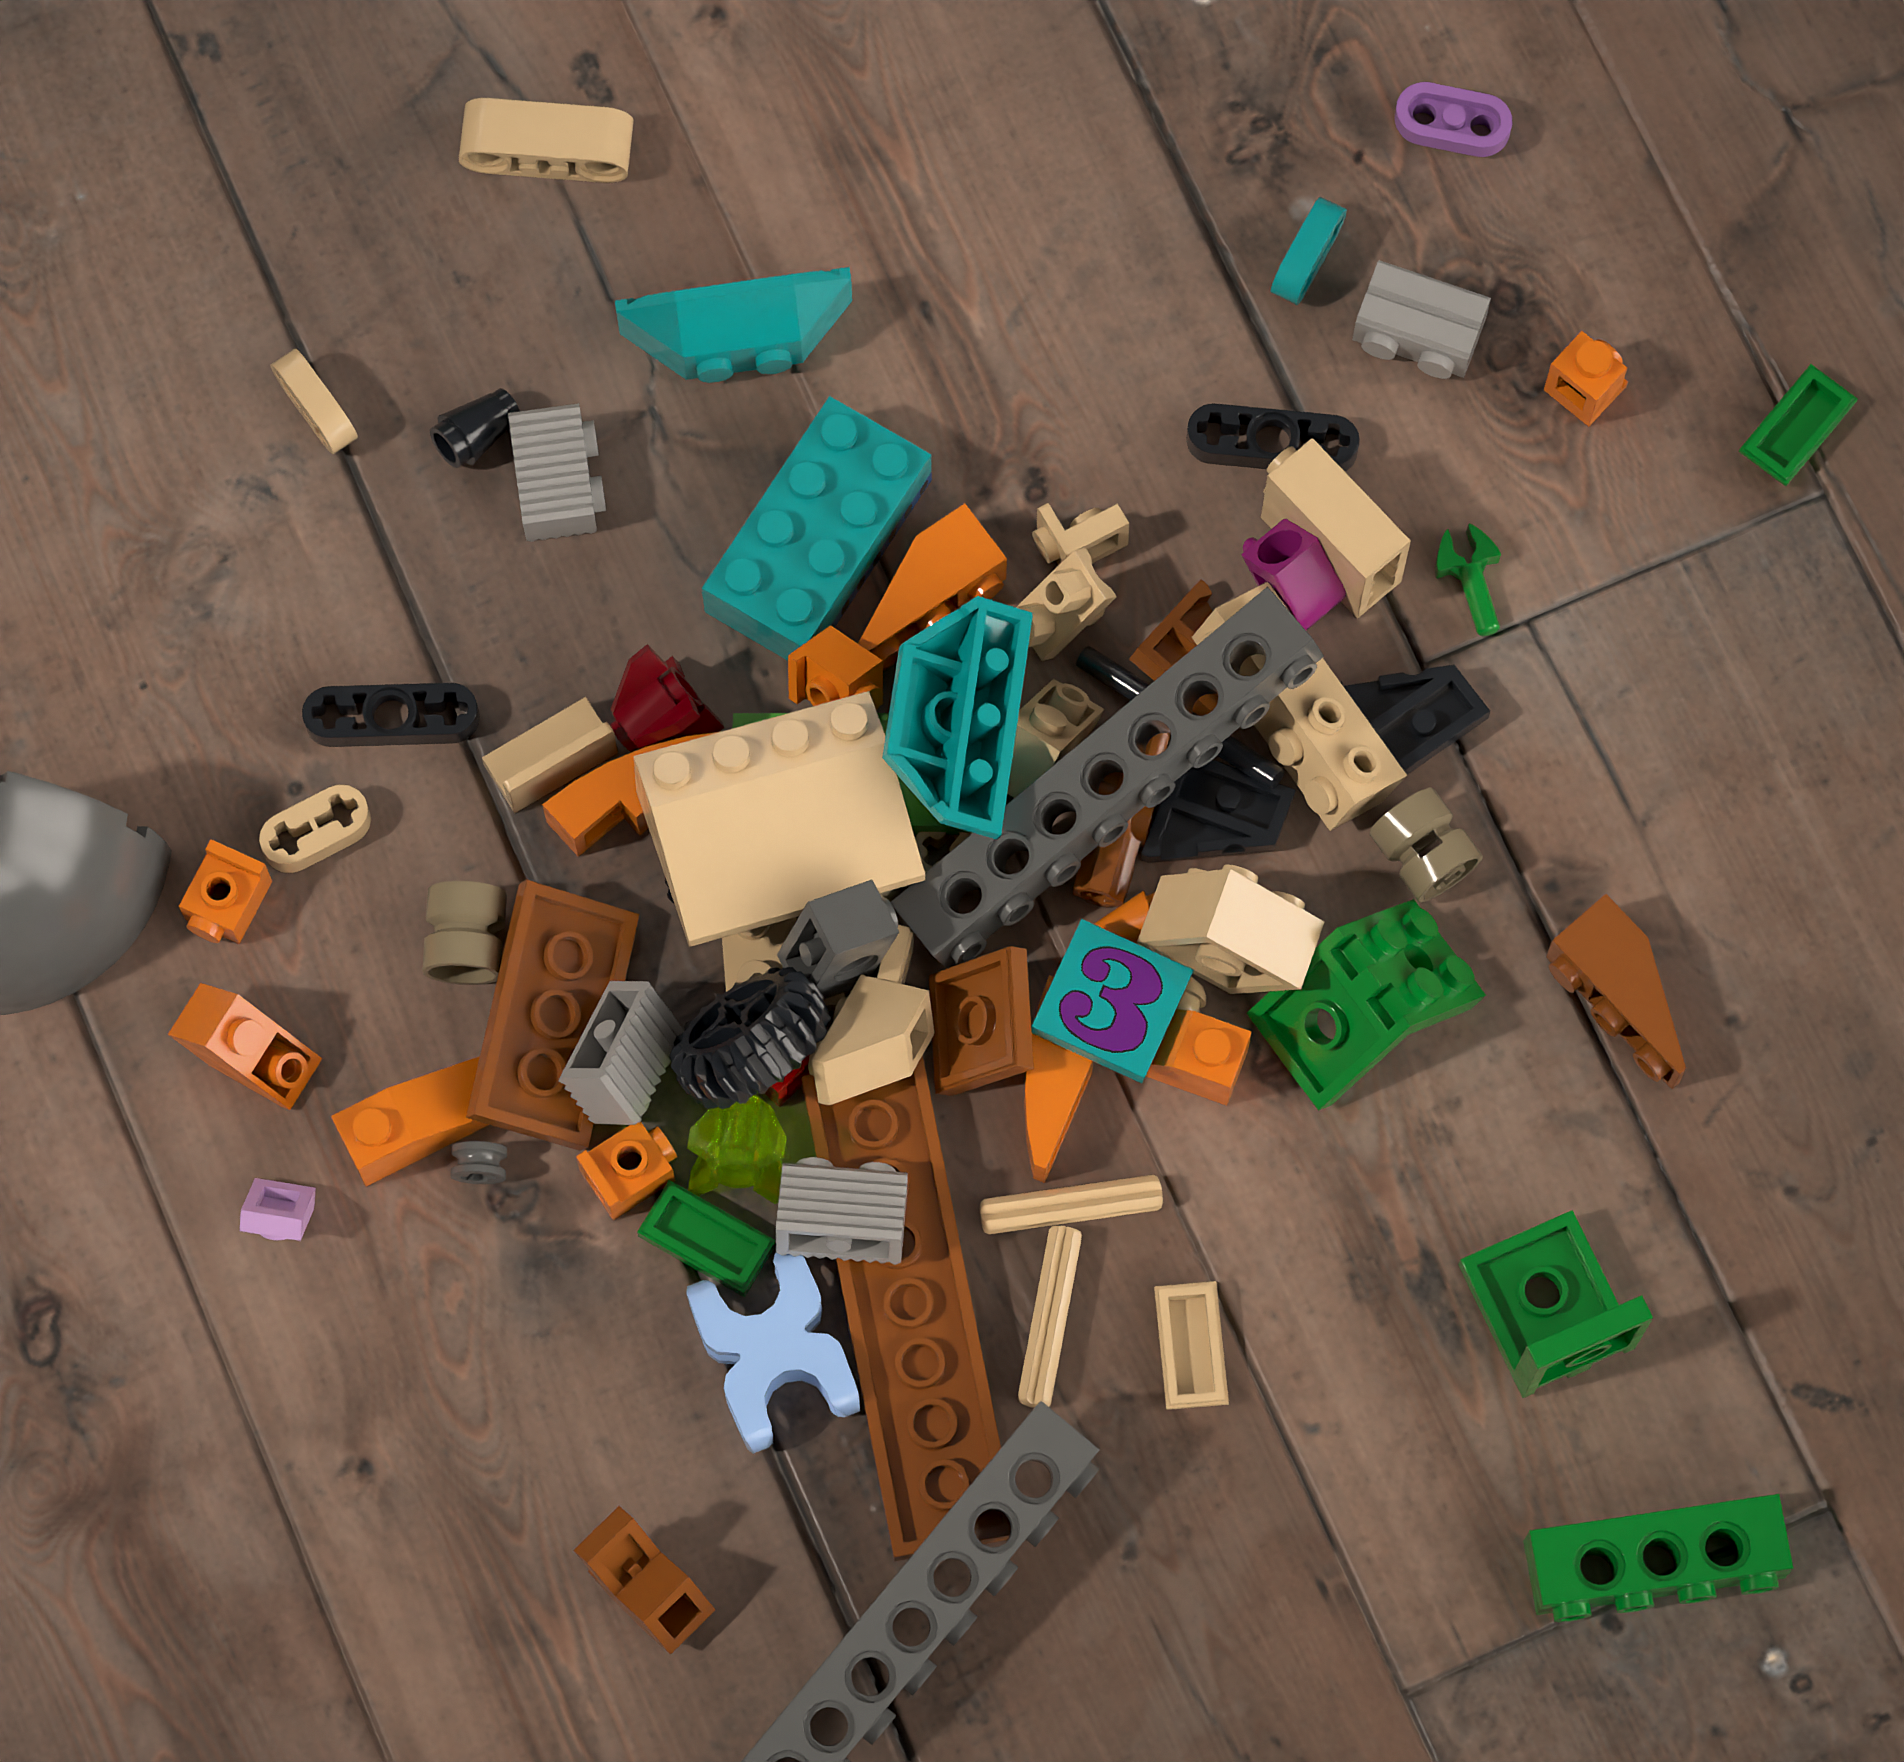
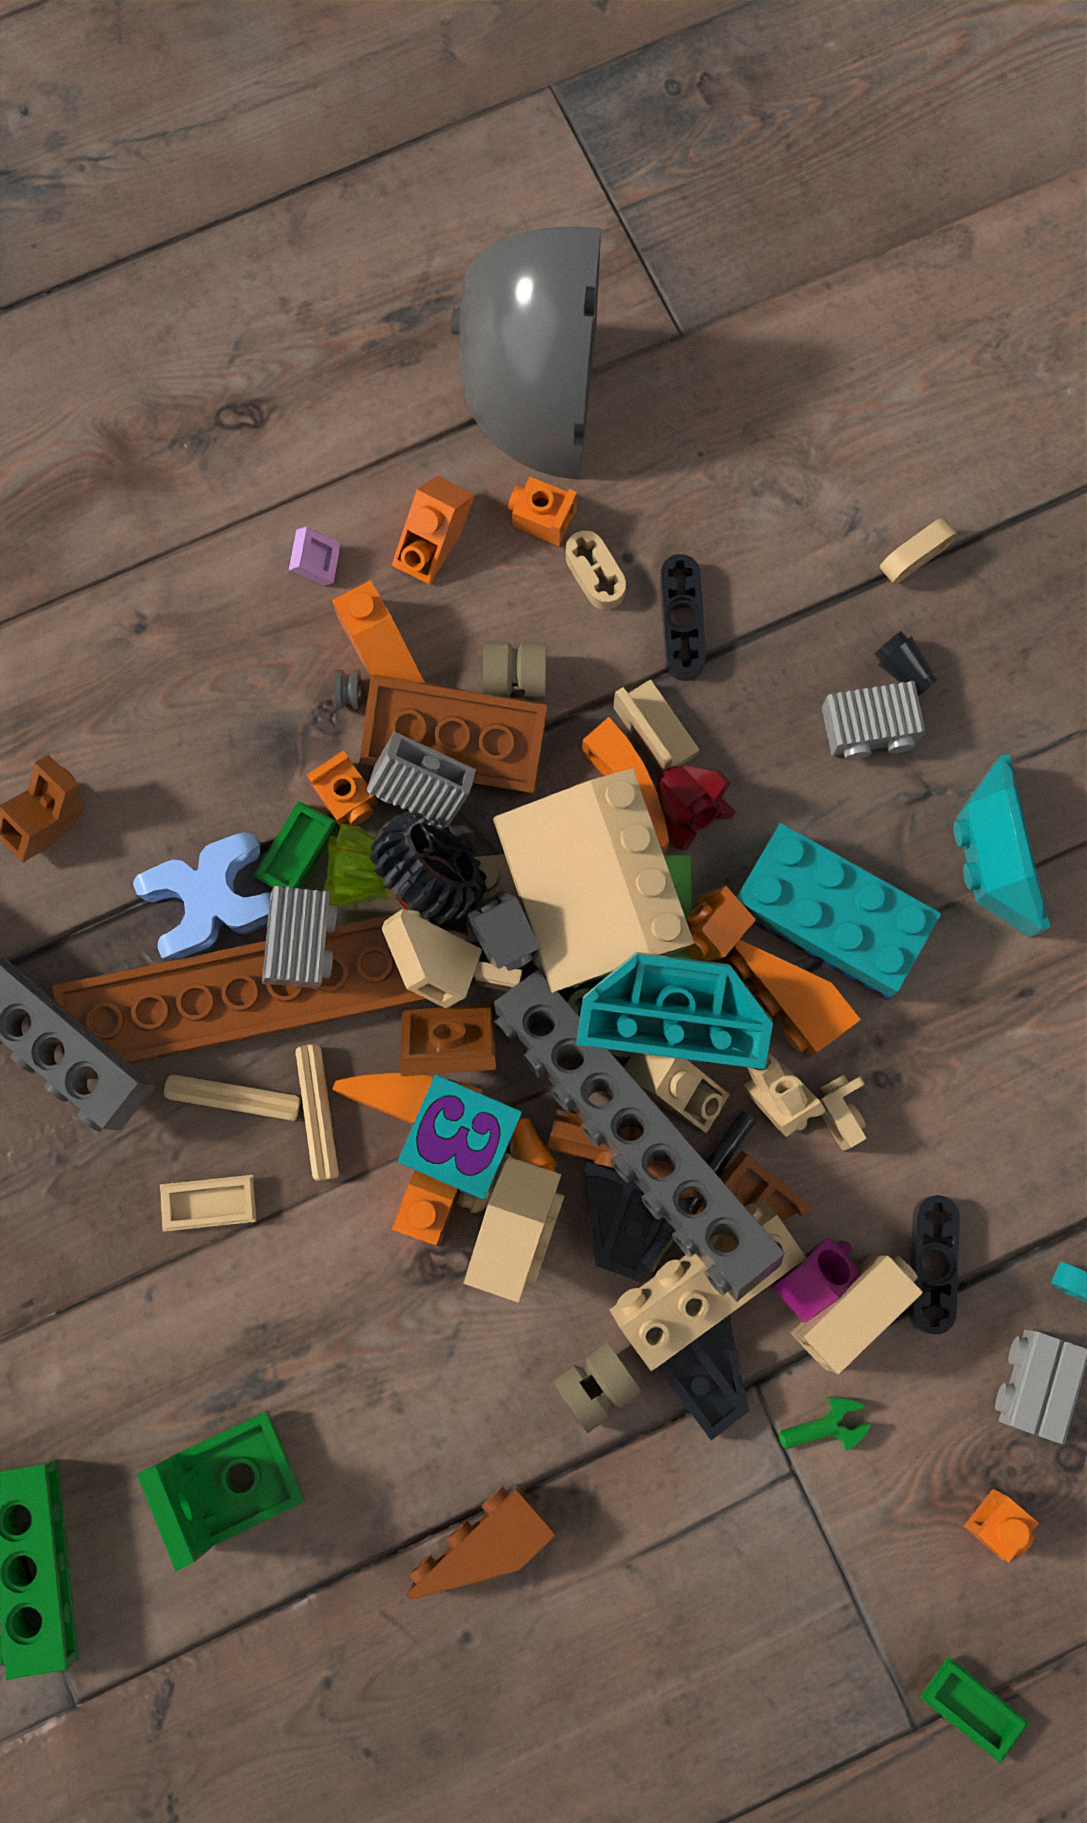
camera: 90 degrees right, 5 degrees up
(1379, 986) = (471, 1343): green bracket -> none

